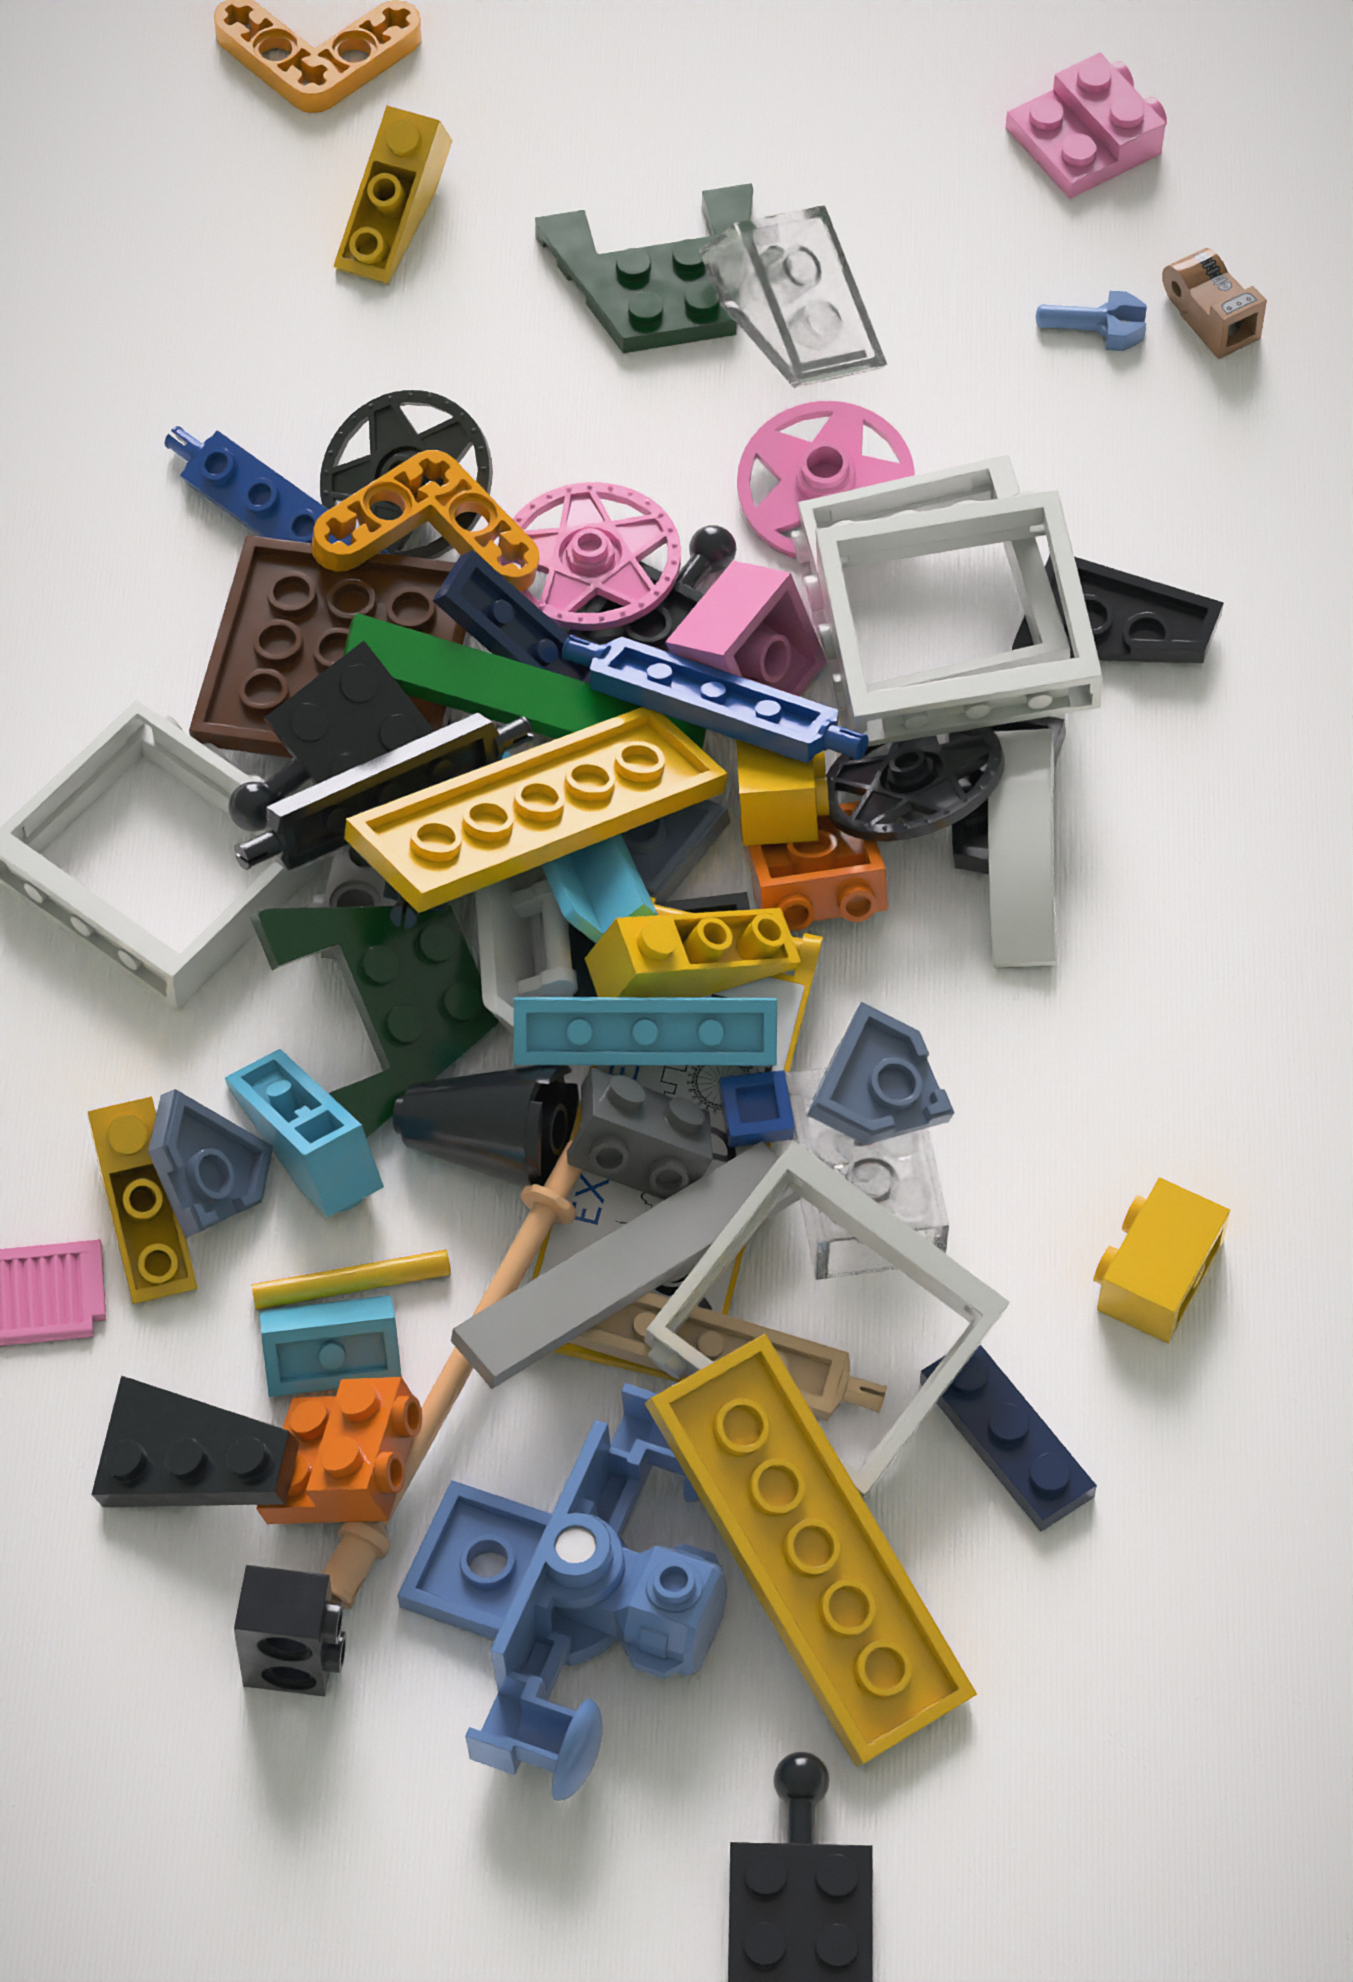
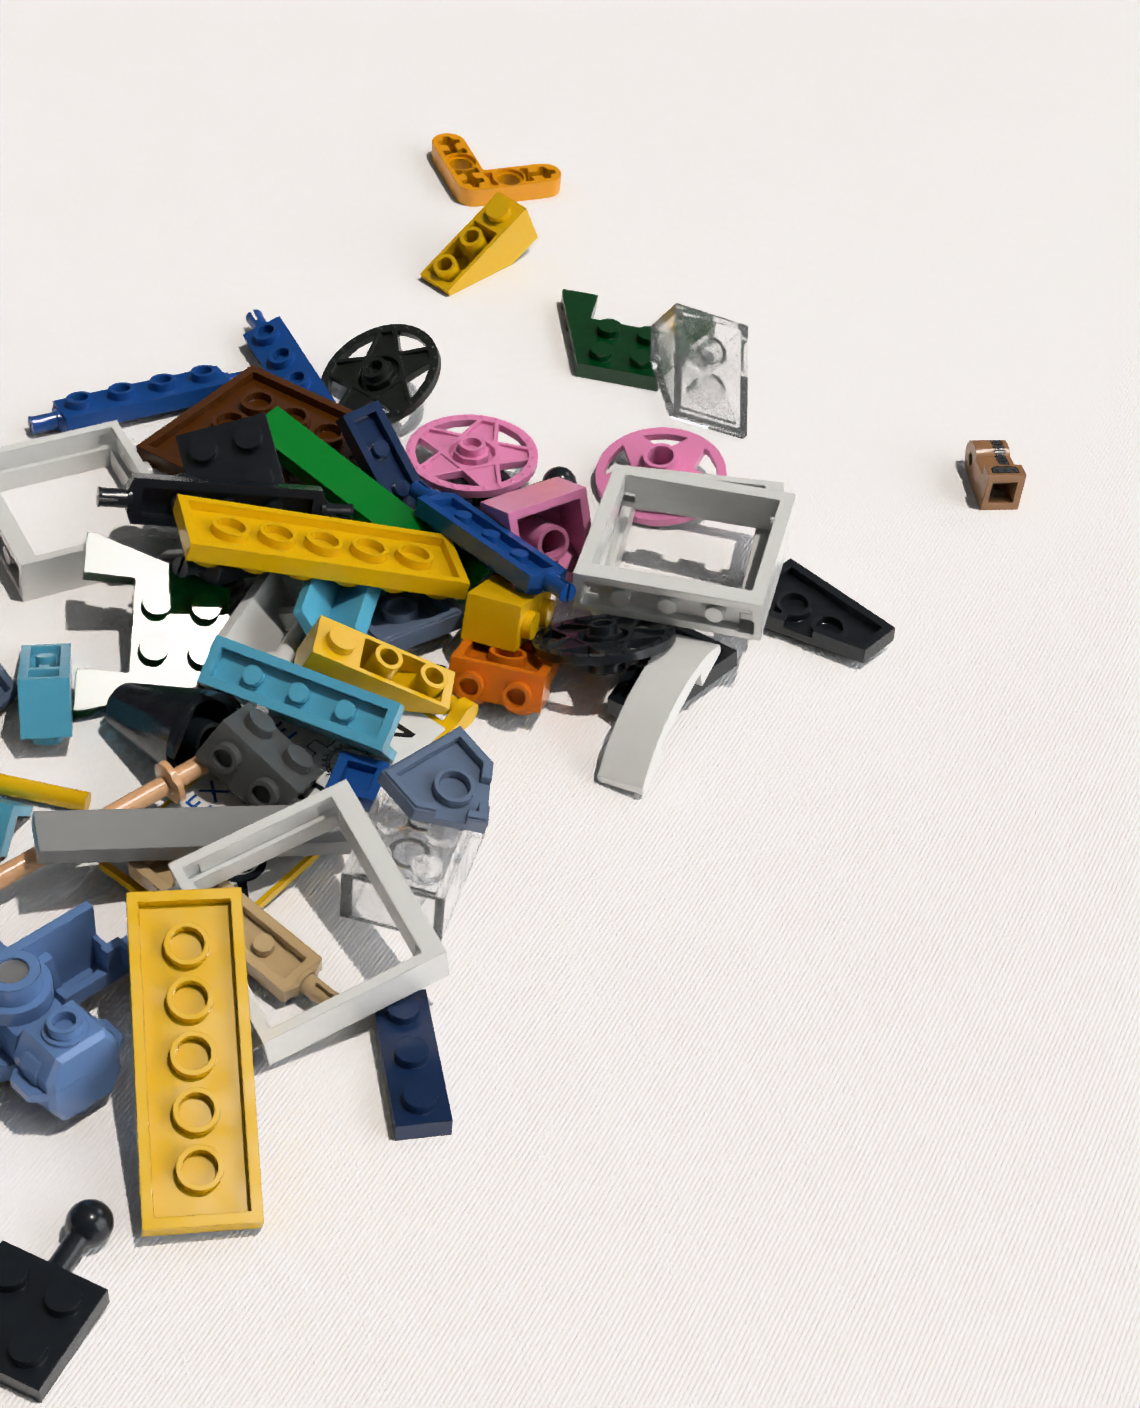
camera: 20 degrees right, 15 degrees down
(121, 638) = (131, 401): none -> blue plate
(433, 504) = (388, 379): light orange beam -> none
(1089, 125) = (966, 362): bright pink plate -> none
(1103, 319) = (920, 466): medium blue bar -> none
(1162, 1258) = (599, 994): yellow brick -> none

